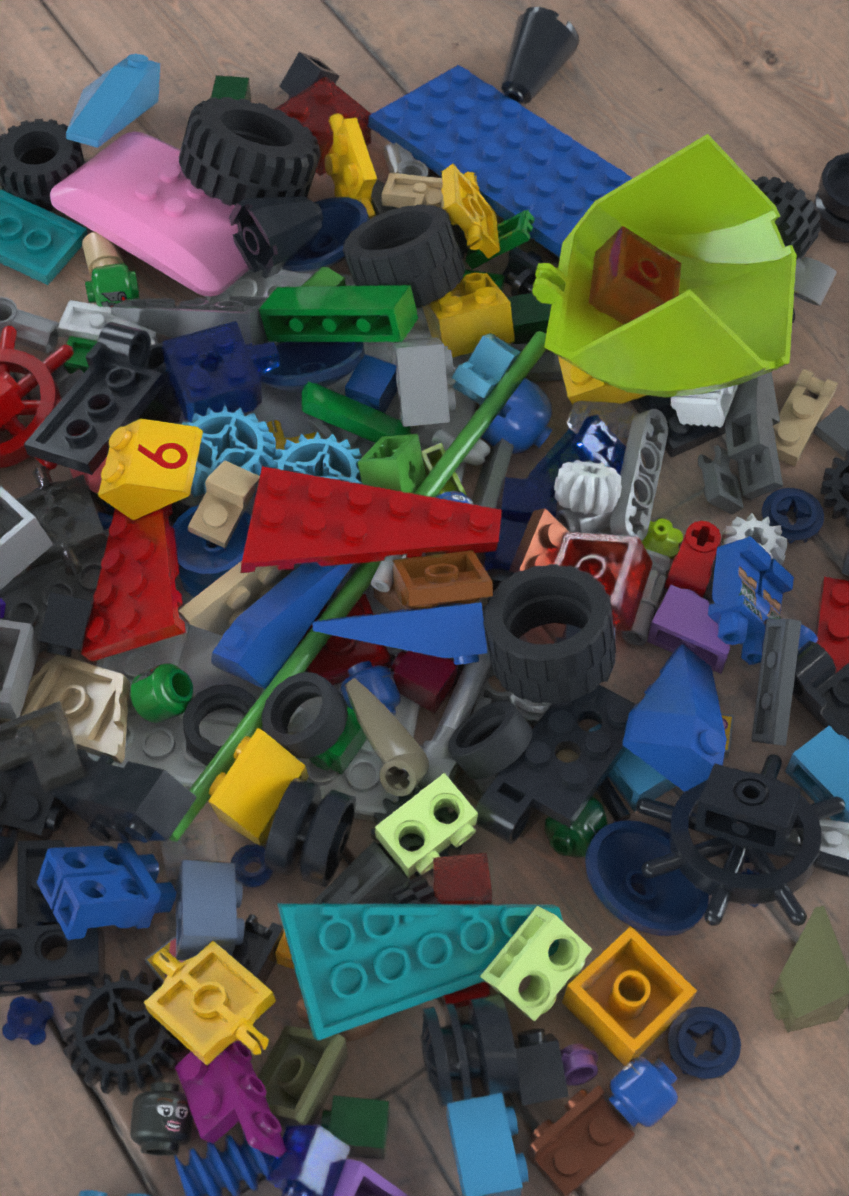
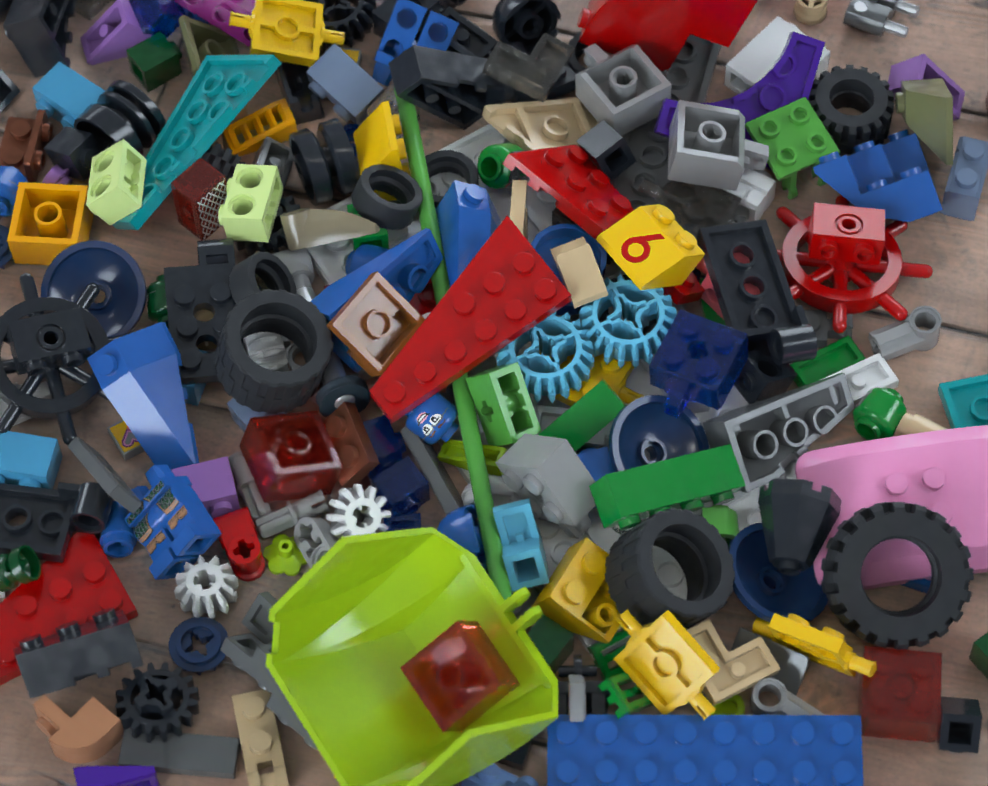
camera: 140 degrees right, 0 degrees up
(549, 247) = (576, 698): none -> light grey tile

